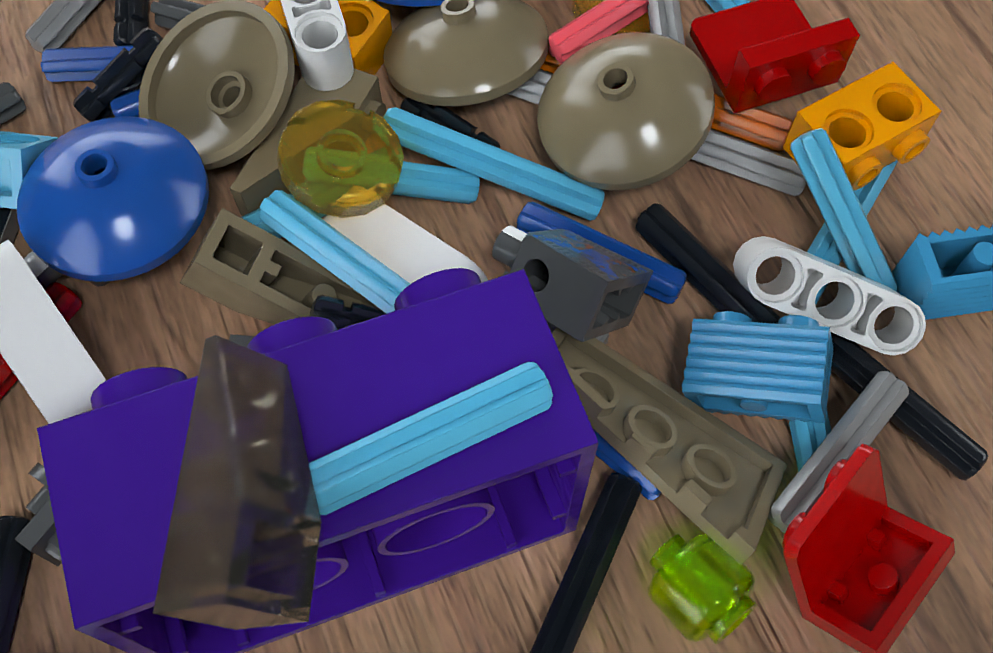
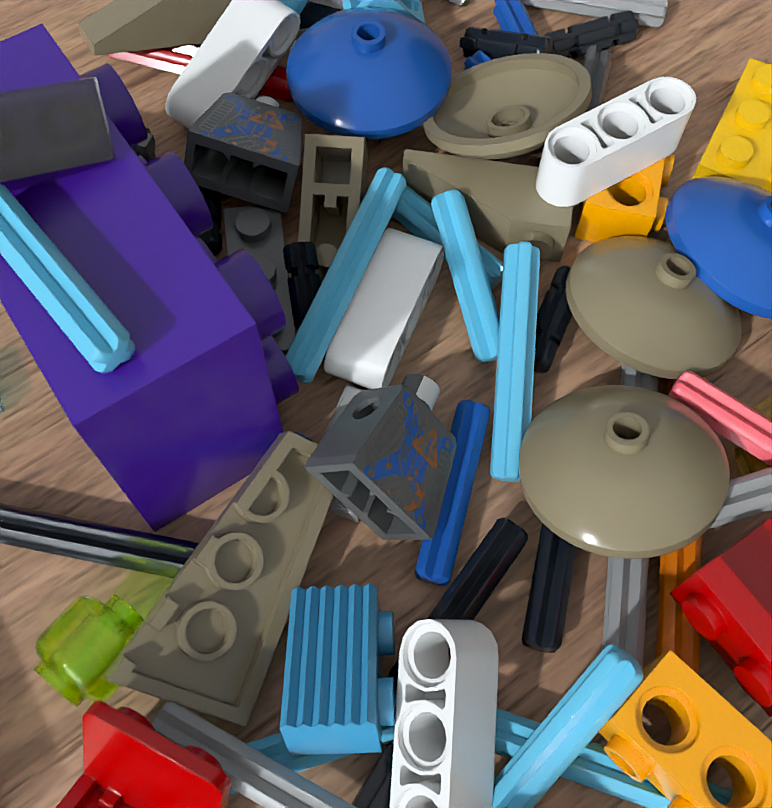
camera: 75 degrees right, 0 degrees up
(161, 325) = (246, 150): none -> dark grey torso
(339, 158) = (454, 215): clear yellow tile -> none
(703, 203) = (549, 593): none -> black axle

